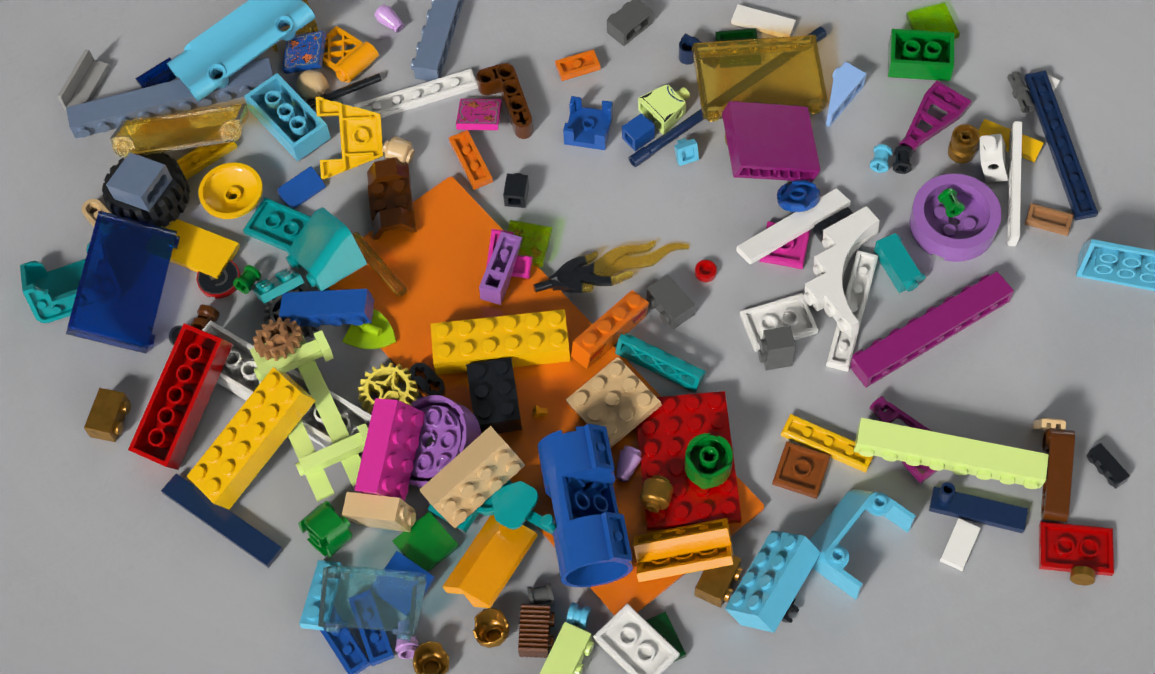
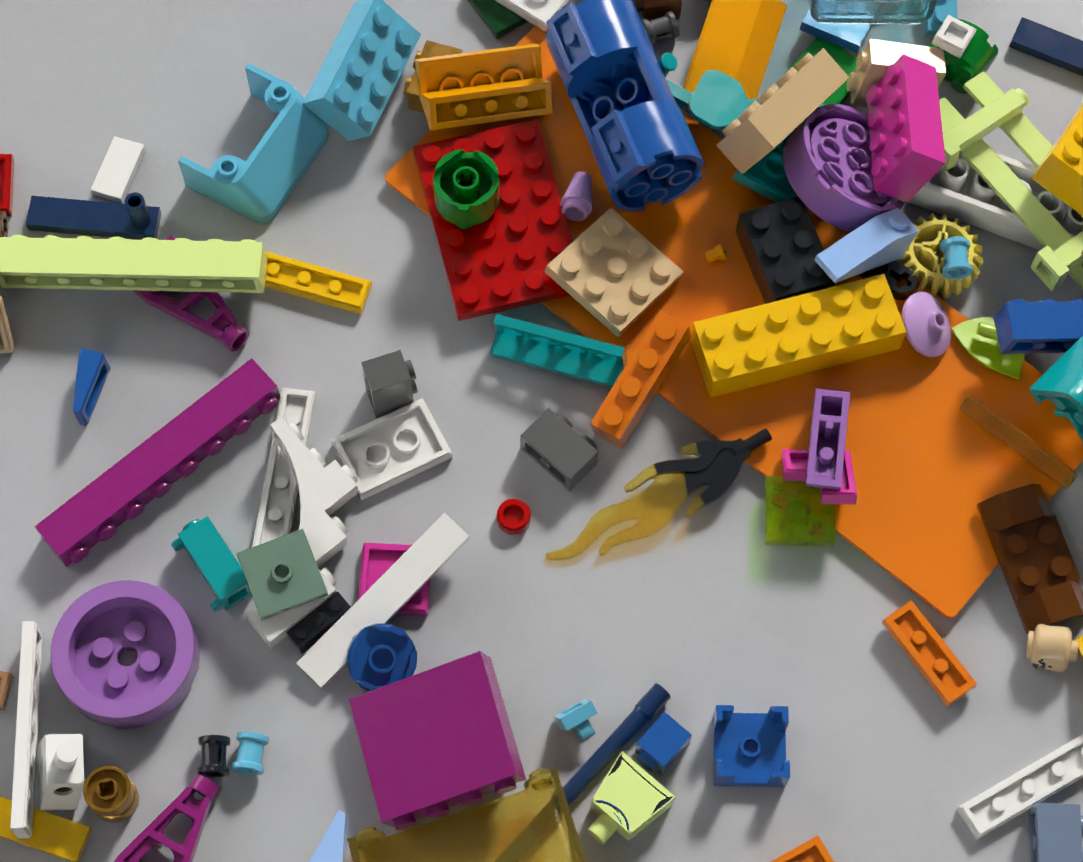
camera: 165 degrees right, 5 degrees up
(331, 519) = (954, 36): none -> white tile
(381, 370) = (956, 257): none -> medium azure bush
(413, 337) = (926, 324): none -> lavender dish
(441, 378) = (868, 246): none -> light blue slope
(478, 114) = (939, 739): dark pink tile -> none
(504, 79) = (896, 774): reddish brown beam -> none
(516, 190) = (839, 604): black brick -> none
(656, 493) = (531, 140): pearl gold head -> none
(801, 470) = (339, 238): dark orange tile -> none
(856, 236) = (282, 574): none -> sand green plate
(951, 202) = (132, 655): green bush -> none
(979, 391) = (90, 379): none -> blue slope

